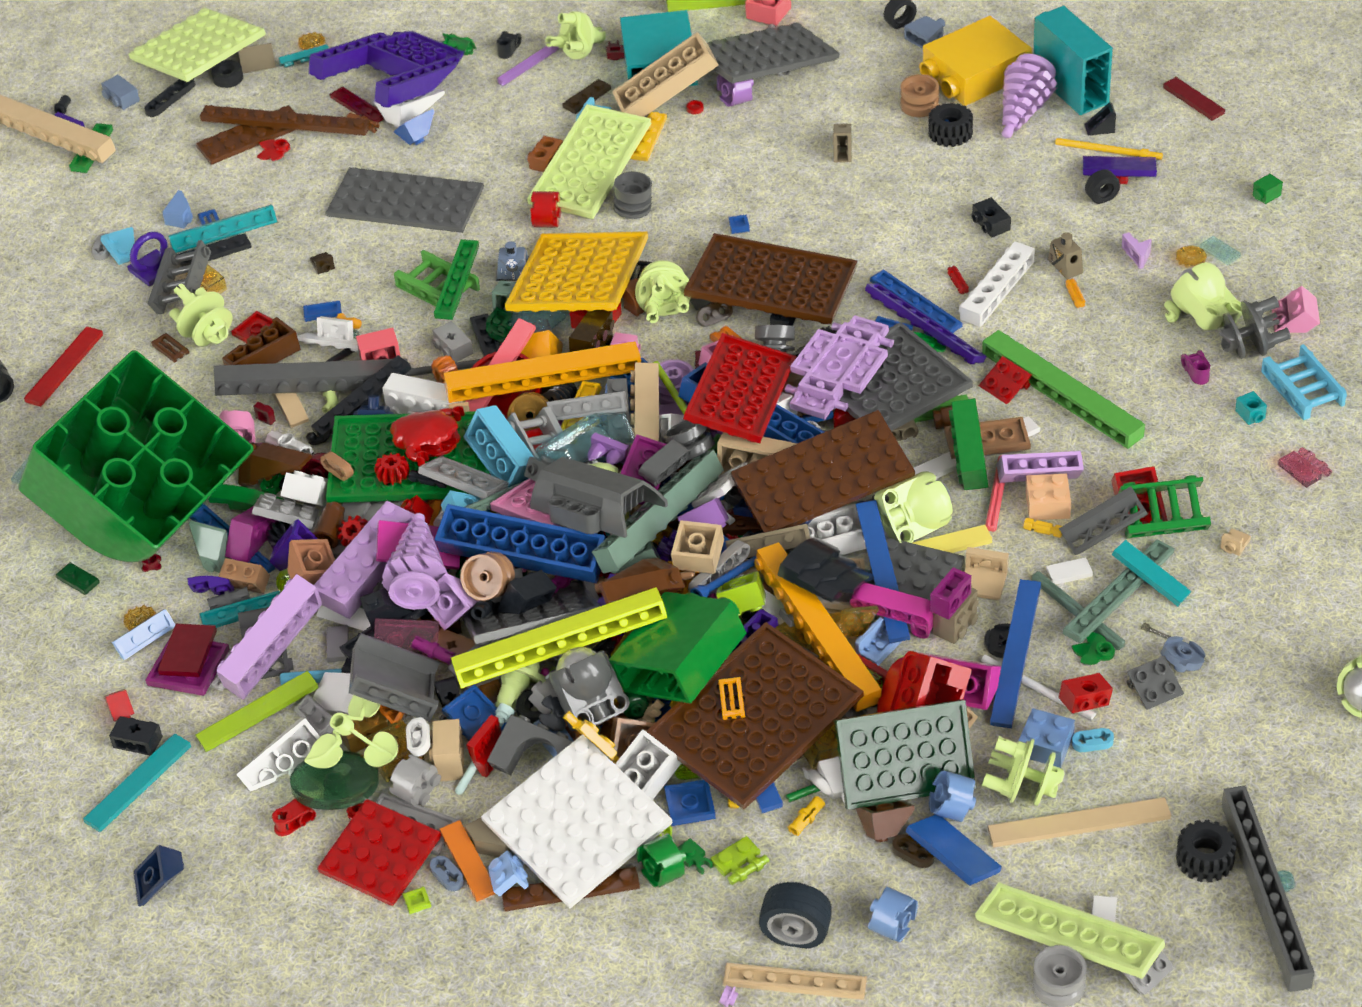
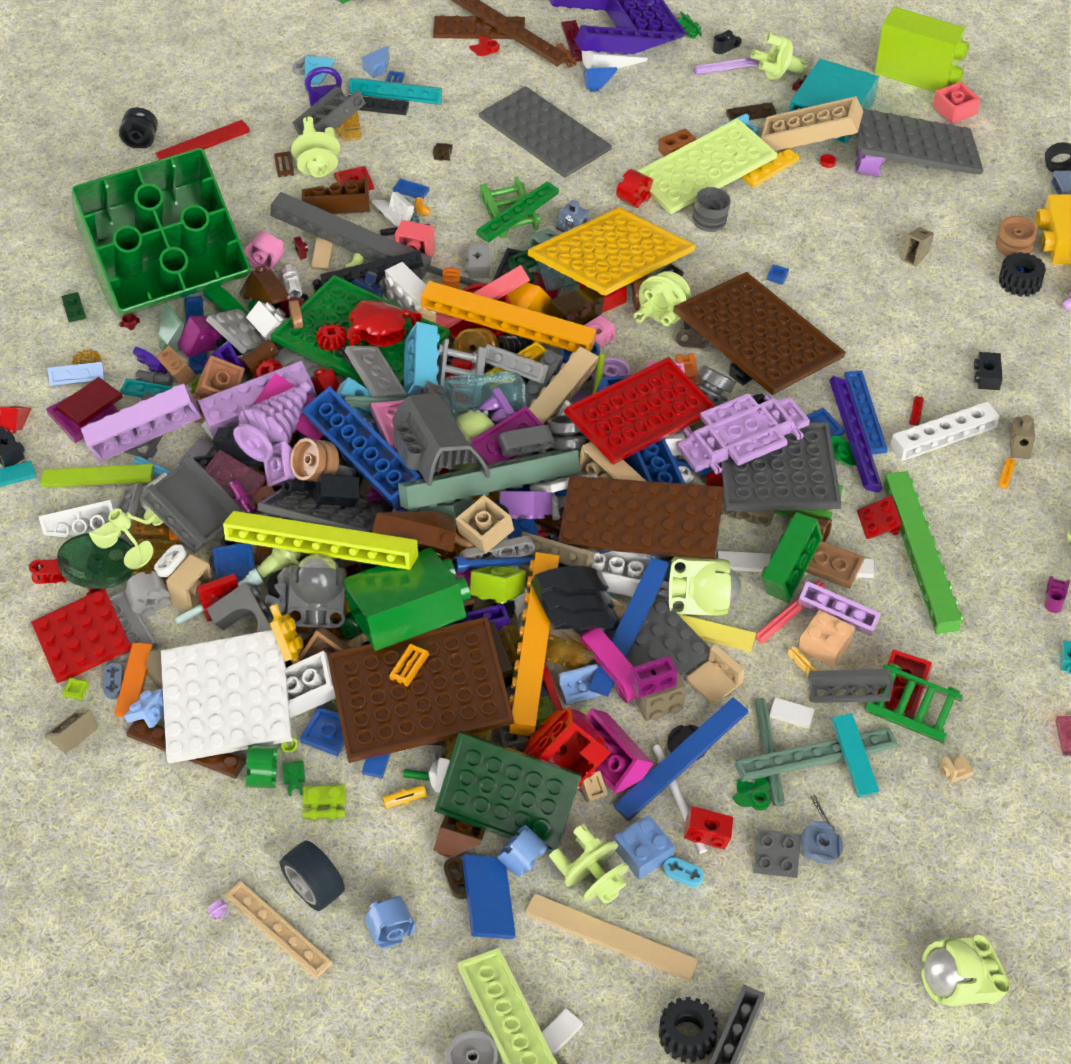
camera: 30 degrees right, 5 degrees up
(449, 932) = (73, 730): none -> dark tan slope

